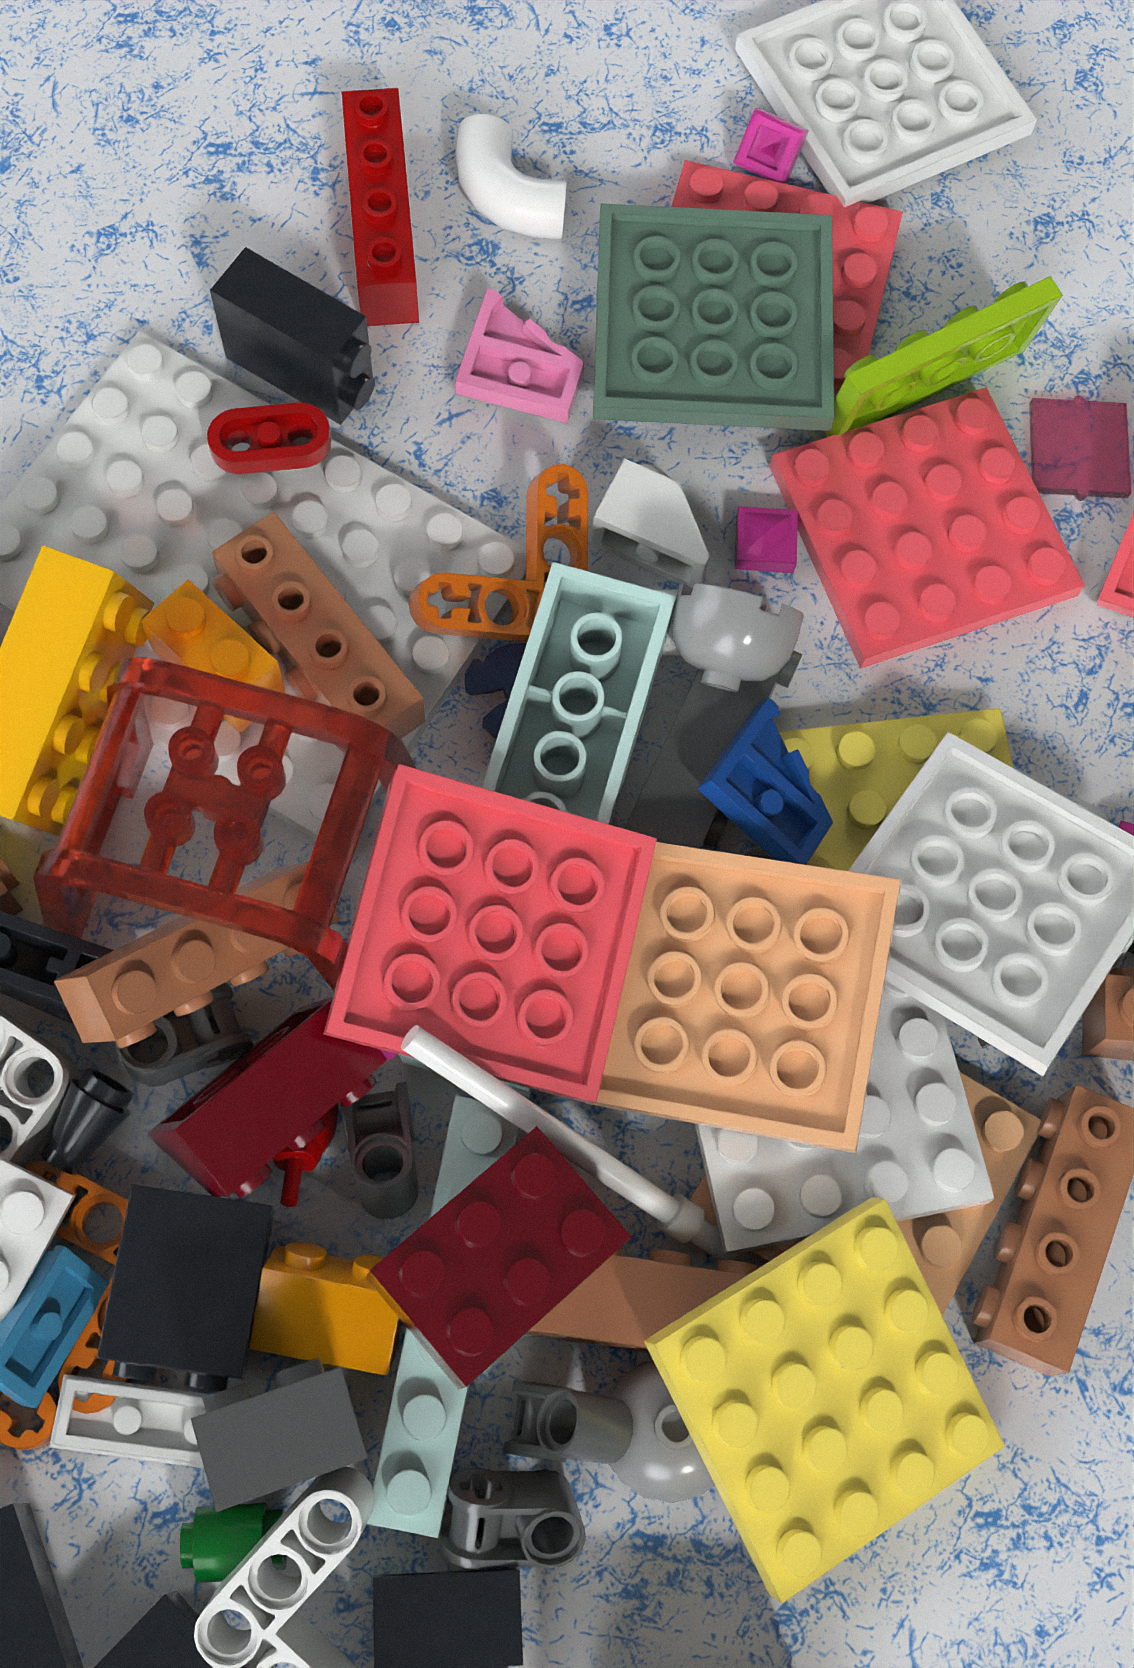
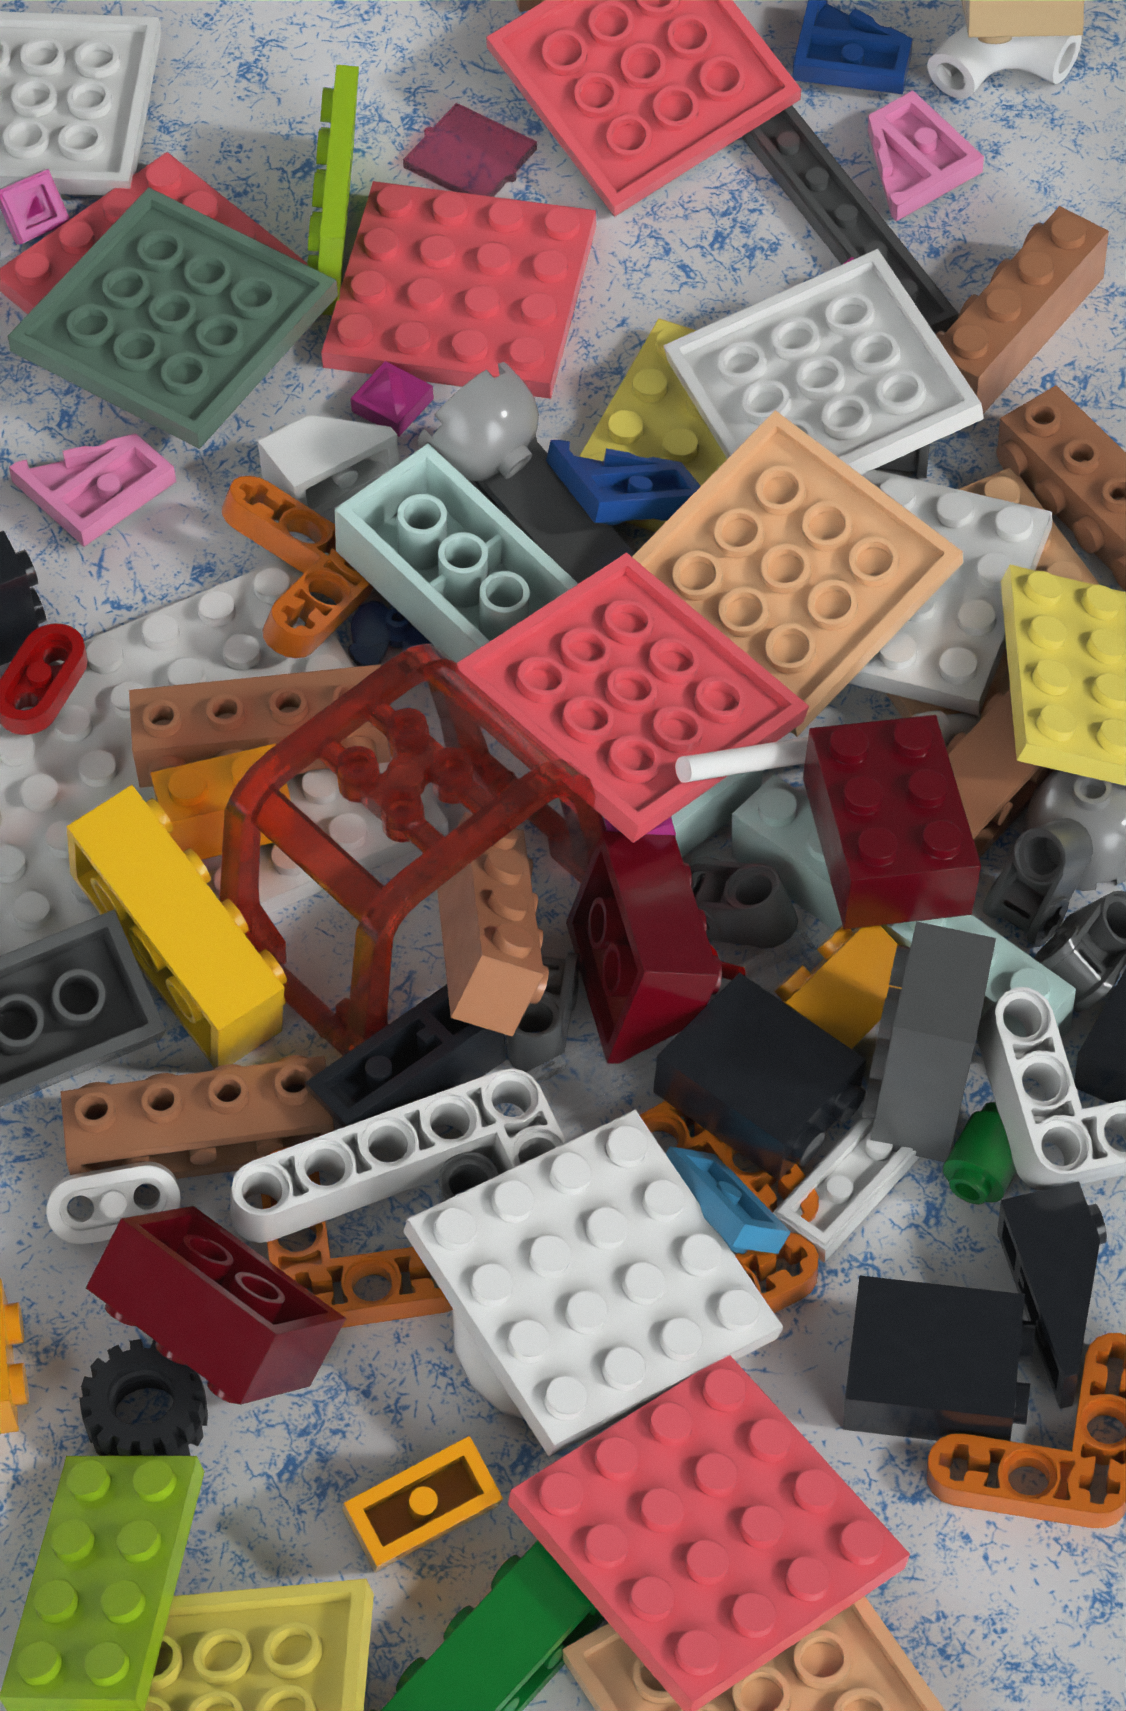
camera: 50 degrees left, 15 degrees down
(86, 1119) = (568, 1089): black cone -> none

